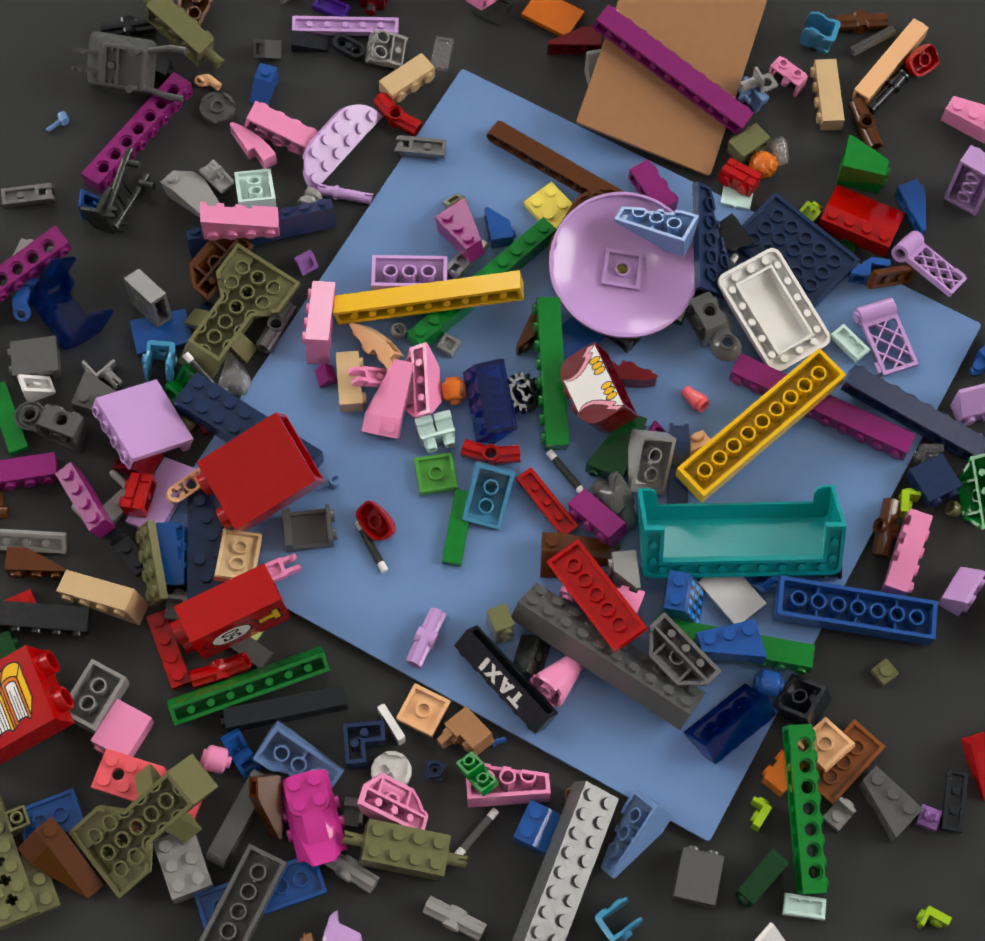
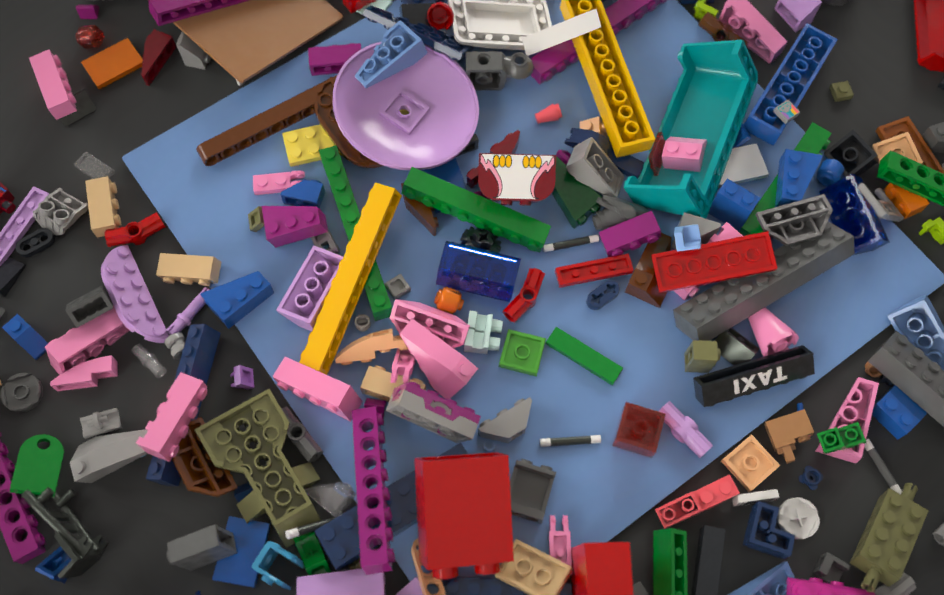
camera: 65 degrees left, 0 degrees up
(160, 152) = (38, 467): none -> green tile
(247, 395) = (372, 560): none -> magenta brick
(255, 188) = (139, 393): light aqua slope -> none
(287, 185) = (149, 361): none -> clear pin
(306, 114) = (89, 306): none -> dark grey brick
(335, 415) = (433, 412): none -> light grey piece
(363, 487) = (508, 423): none -> light grey slope
(363, 674) = (697, 501): none -> coral slope
(372, 222) = (238, 297): none -> blue wedge
(375, 521) = (550, 425): red piece -> none
(380, 172) = (188, 269): none -> tan brick
(392, 802) = (842, 528): bright pink wedge -> none
(404, 595) = (639, 429): none -> clear red brick
(420, 147) = (182, 224): flat silver plate -> none
(488, 495) = (565, 314): dark azure slope -> none
(499, 200) = (275, 182): none -> bright pink hinge
(528, 517) = (605, 298): none -> dark blue beam
(606, 559) = (687, 237): none -> light blue panel
(697, 509) = (655, 155): none -> clear red piece
(713, 533) = (683, 153): none -> bright pink slope
(739, 252) = (440, 15): none -> red hair
(748, 747) = (884, 207): none -> light grey plate
(778, 365) = (561, 32): none -> white sticker
(805, 609) = (786, 111): none -> light grey tile

